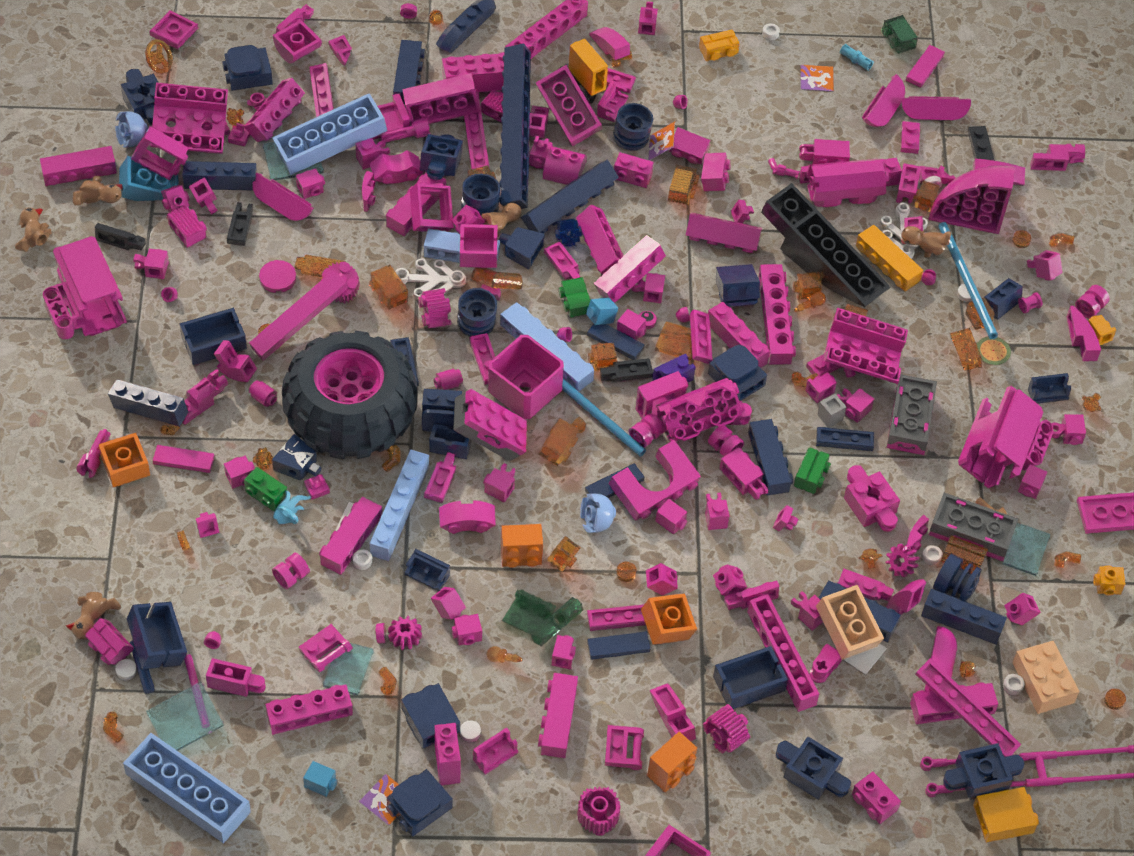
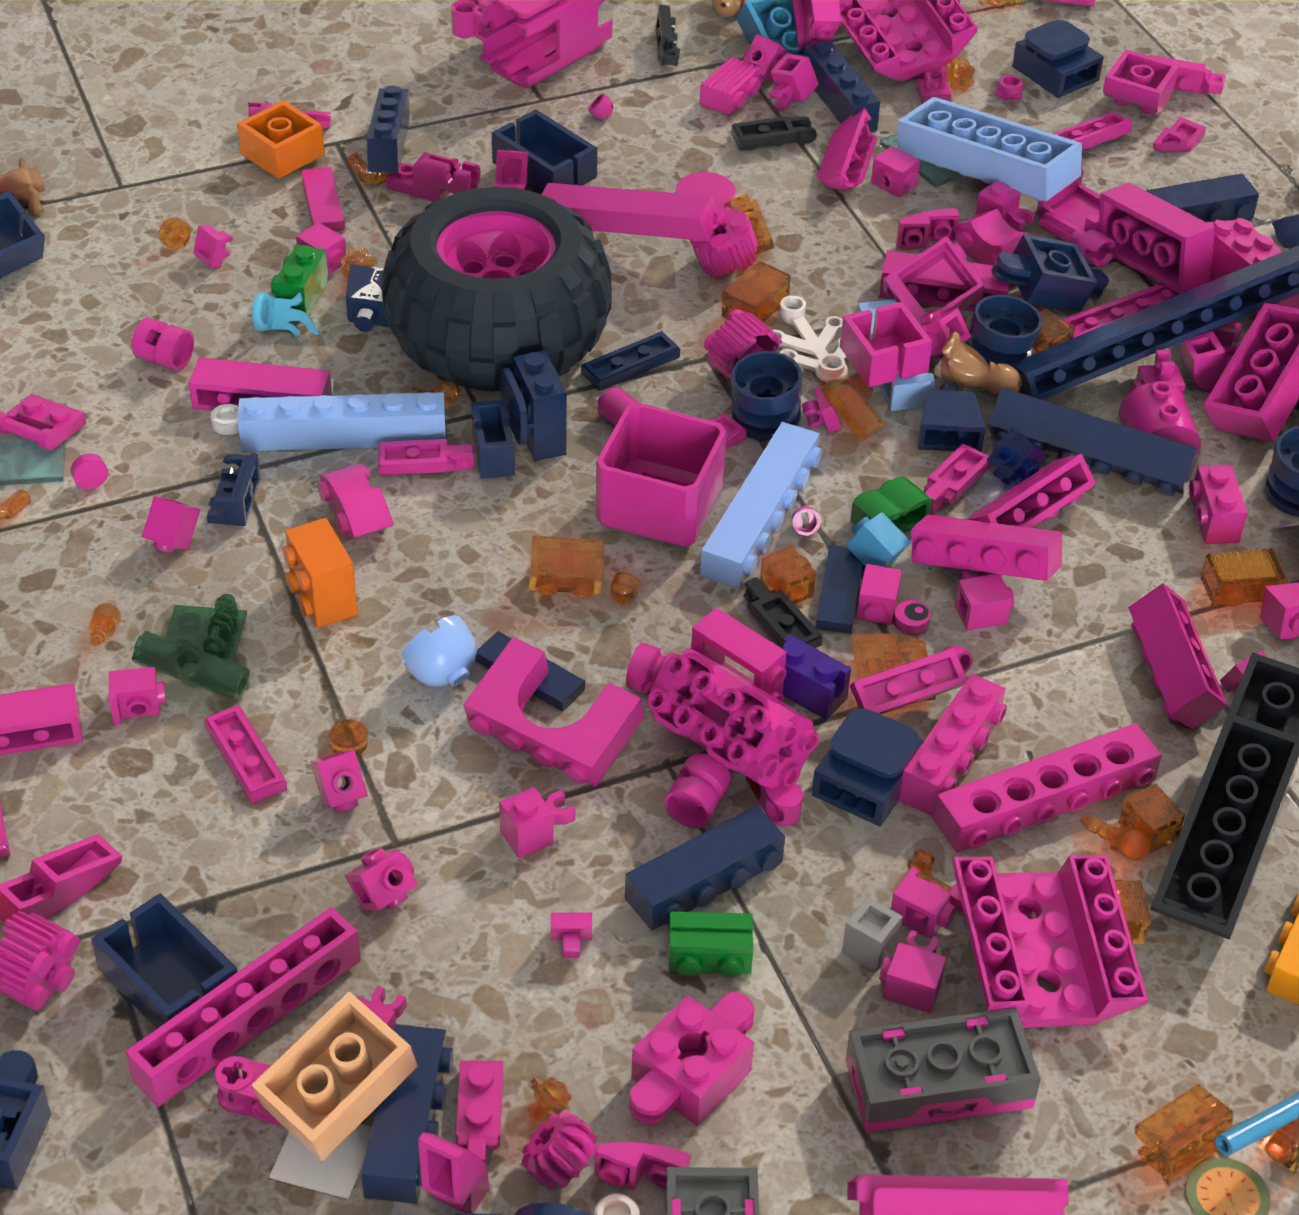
camera: 70 degrees right, 10 degrees down
(154, 264) = (644, 77): dark pink brick -> none
(212, 640) = (14, 309): dark pink hinge -> none
(274, 110) = (1005, 98): dark pink brick -> none
(316, 486) = (340, 334): dark pink tile -> none
(405, 632) = (99, 496): dark pink gear -> none
(467, 629) = (134, 565): dark pink brick -> none
(490, 425) = (529, 454): dark pink piece -> none
(500, 483) = (446, 523): dark pink brick -> none
(564, 554) = (332, 633): clear orange brick -> none
(603, 419) = (678, 584): dark azure piece -> none
(618, 645) = (184, 770): dark blue tile -> none
(668, 619) = (251, 808): orange brick -> none
(671, 516) = (491, 760): dark pink brick -> none
(738, 285) = (1063, 702): dark blue brick -> none
(742, 598) = (376, 939): dark pink hinge -> none
(743, 473) = (645, 832): dark pink brick -> none
(845, 439) = (826, 983): dark blue tile -> none

